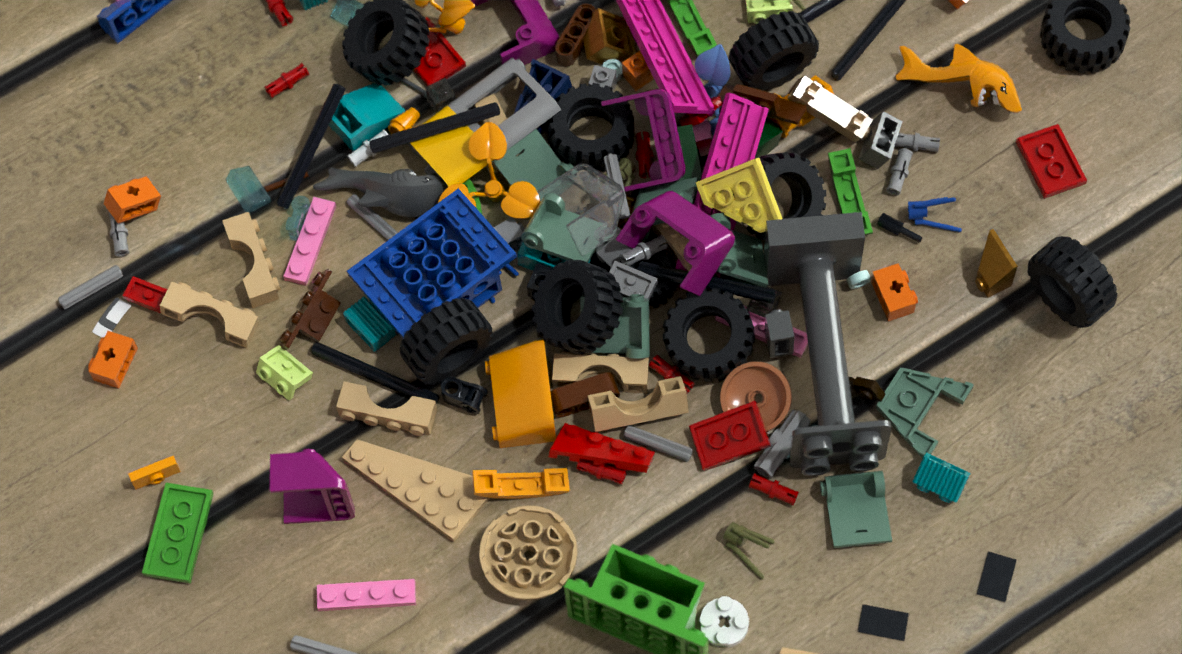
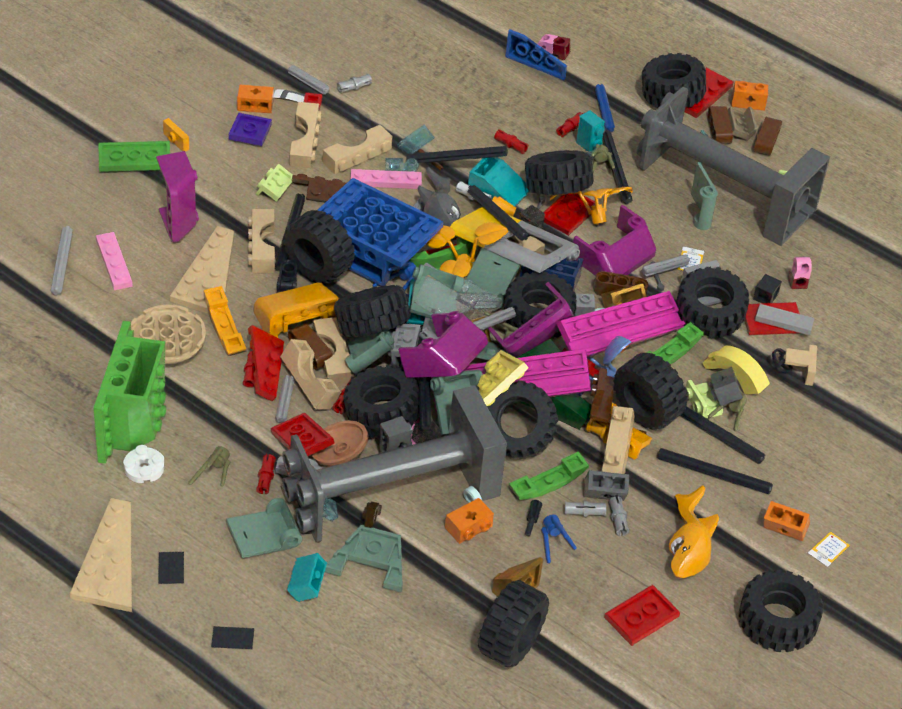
camera: 65 degrees right, 20 degrees down
(132, 199) = (379, 79): orange brick -> none
(169, 379) = (250, 129): none -> dark purple plate

